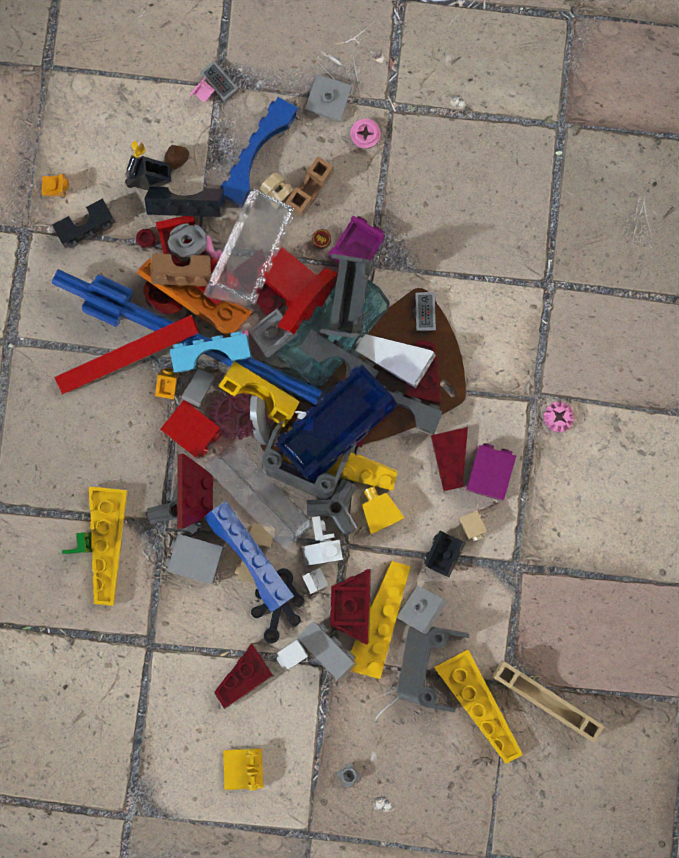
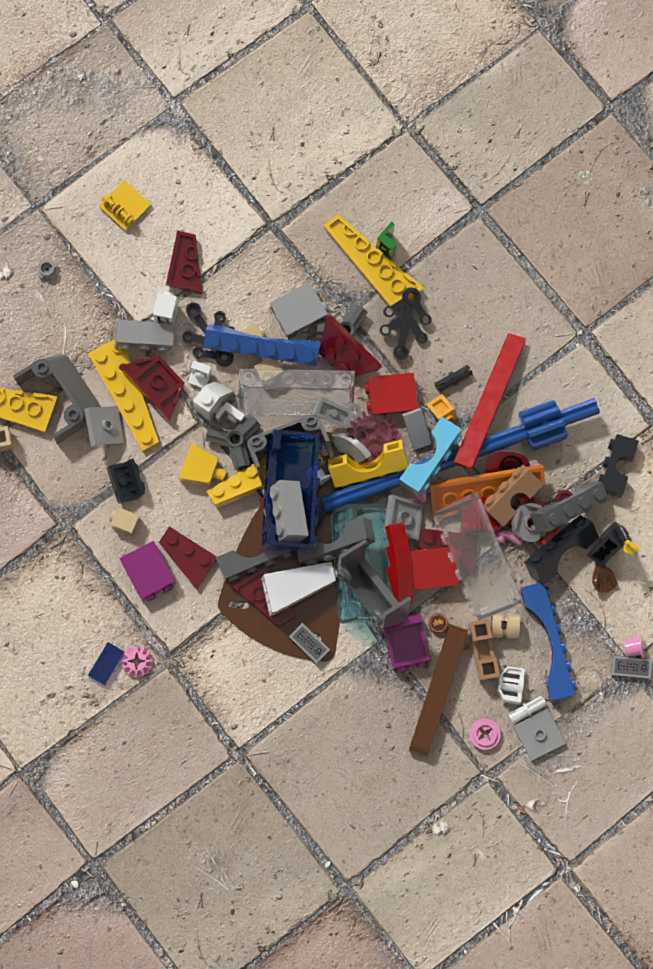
camera: 130 degrees right, 5 degrees down
(126, 473) = (406, 320): none -> black plant
(135, 399) = (453, 378): none -> black pin
(167, 226) = (582, 500): none -> dark grey arch
(246, 453) = (334, 412): none -> light grey hinge
(306, 143) = (511, 685): none -> white piece
(320, 121) = (527, 709): none -> white axle
(353, 408) = (289, 511): none -> light grey brick
(367, 192) = (438, 690): none -> reddish brown beam
(582, 436) = (106, 663): none -> clear blue tile

